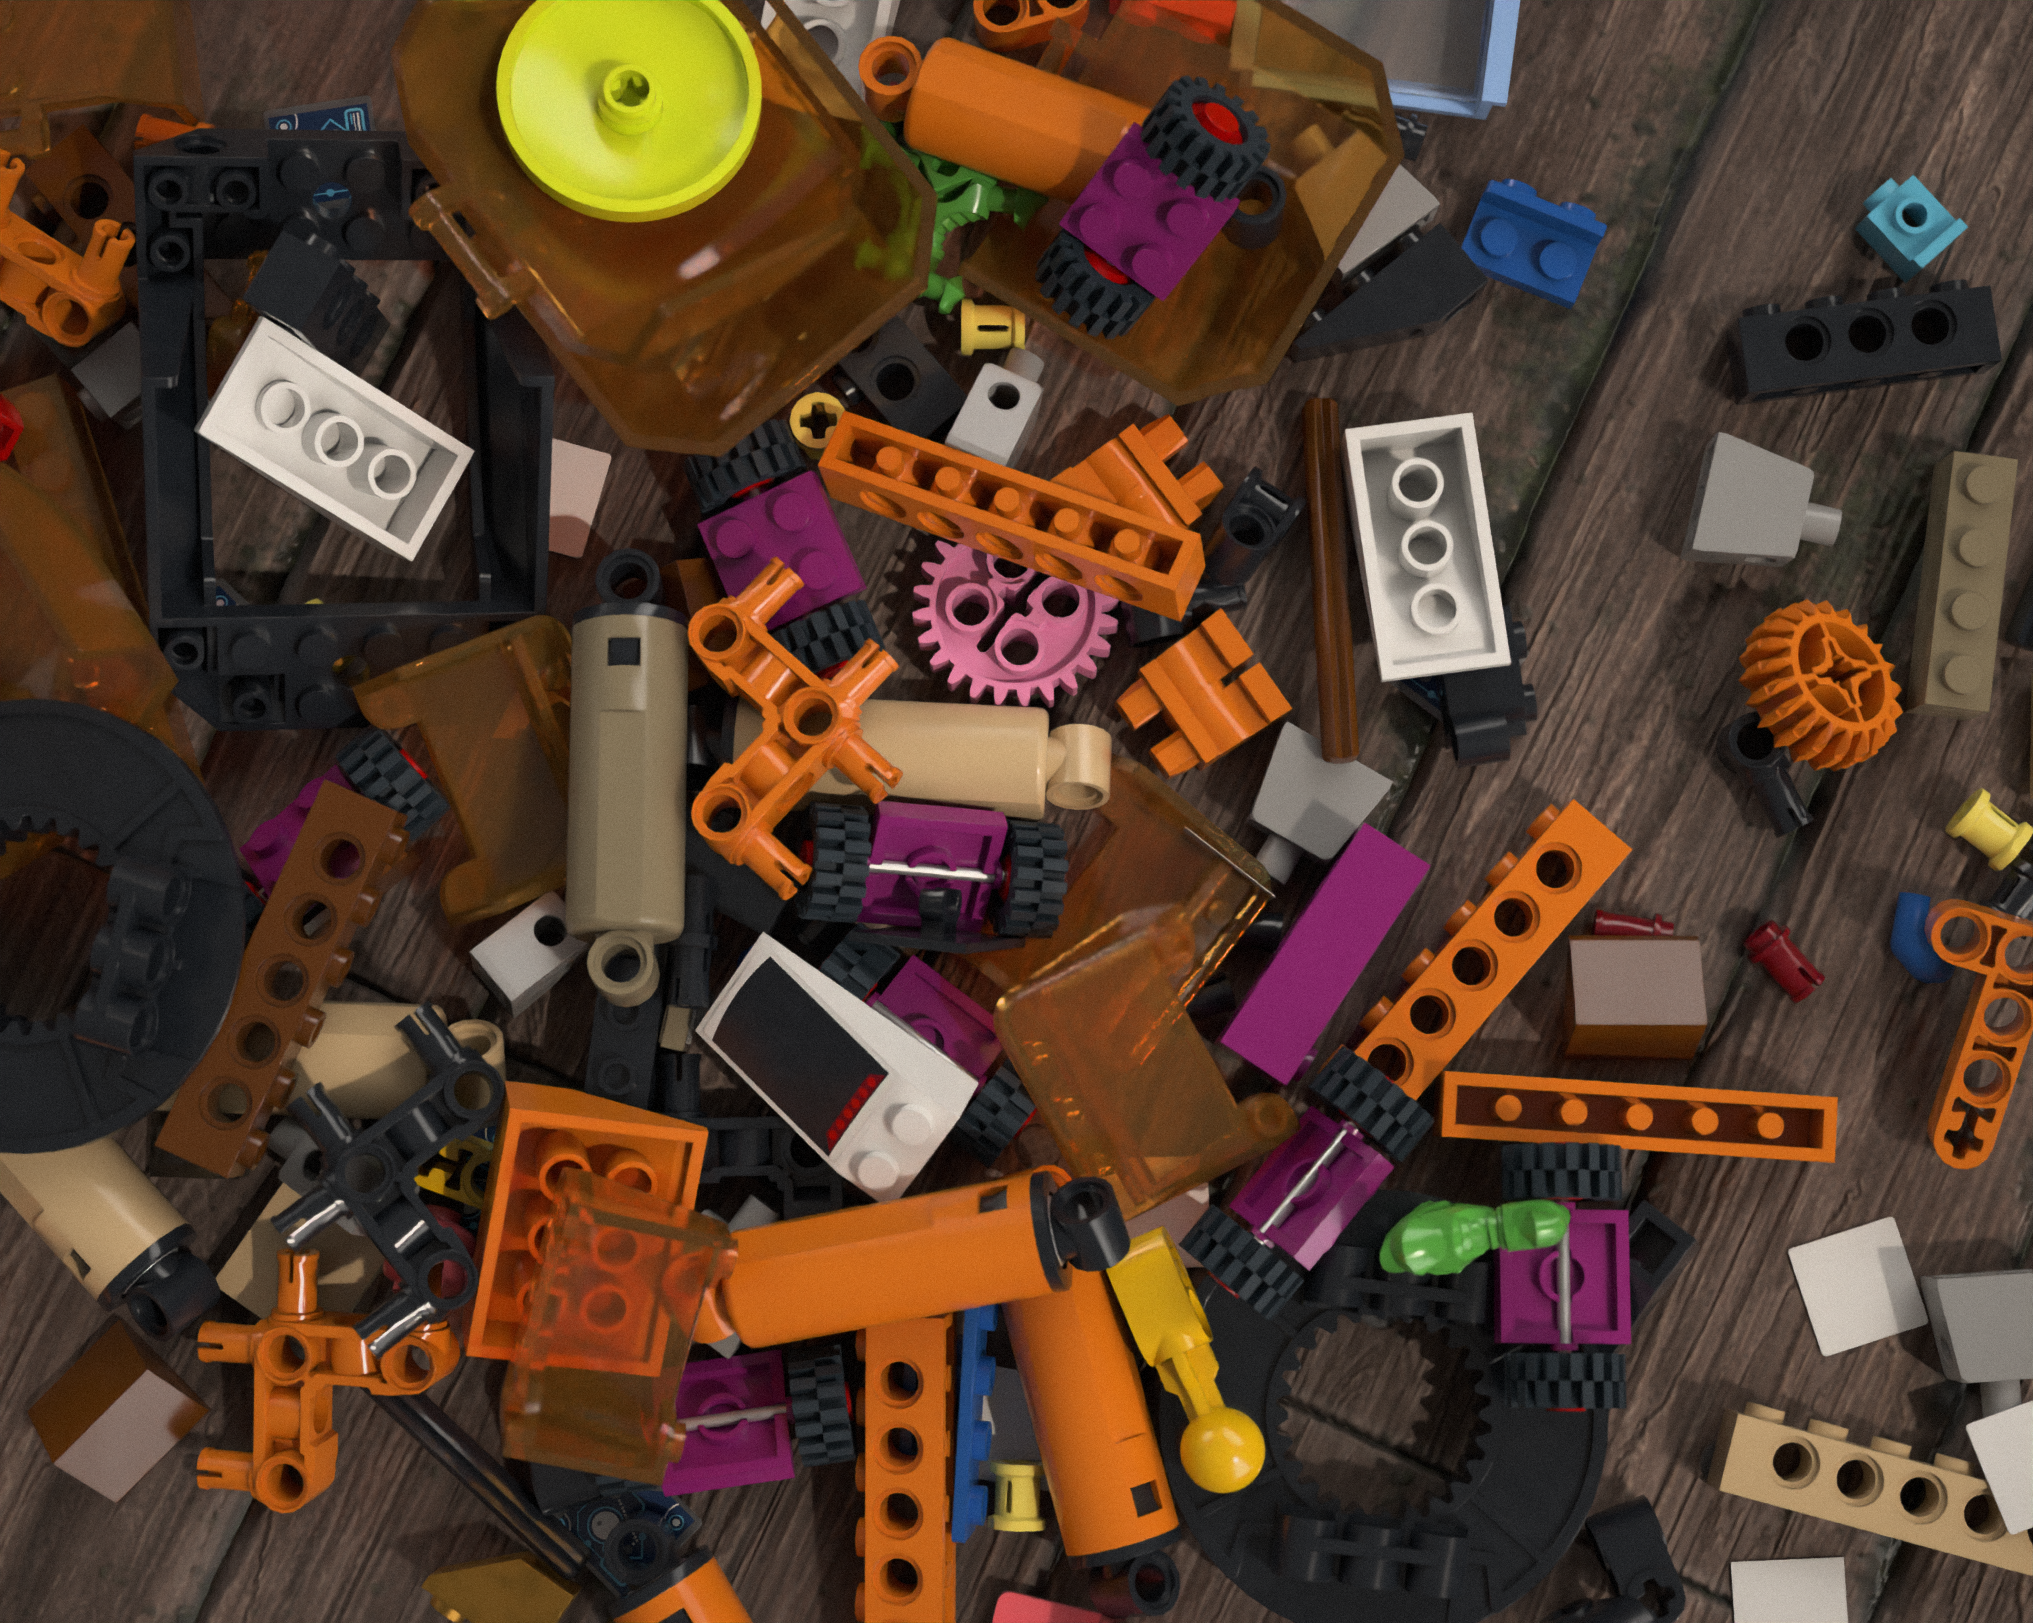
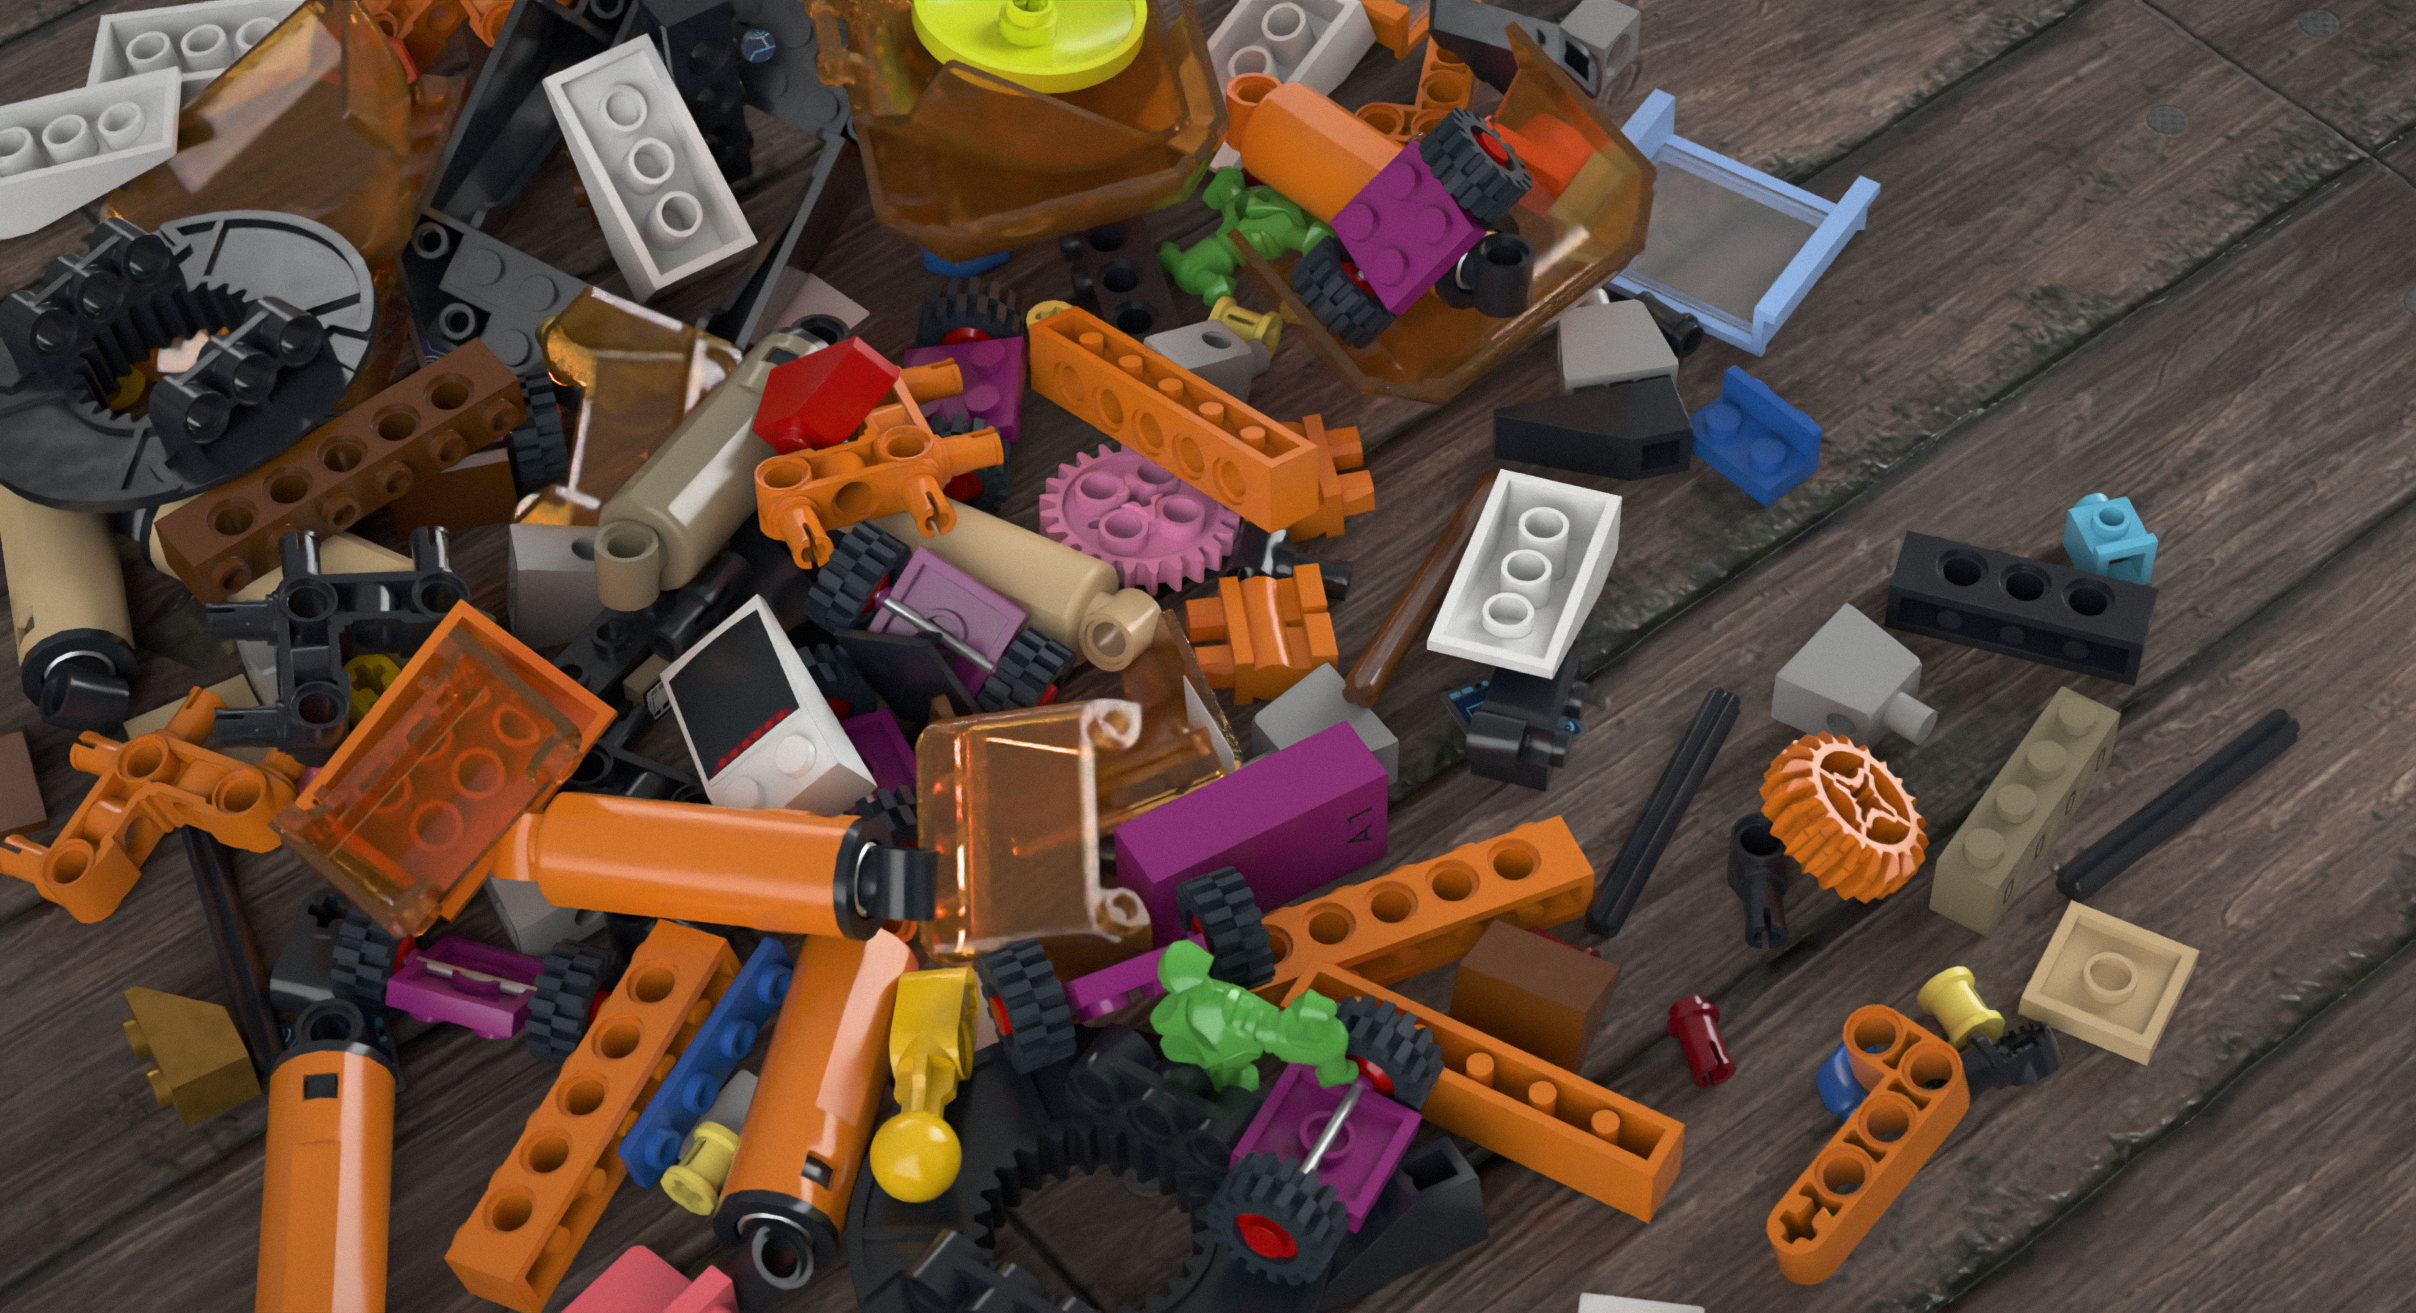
camera: 25 degrees right, 35 degrees down
(705, 710) = (822, 396): none -> red slope
(1249, 529) = (1380, 529): black piece -> none
(1641, 721) = (1662, 813): none -> black axle

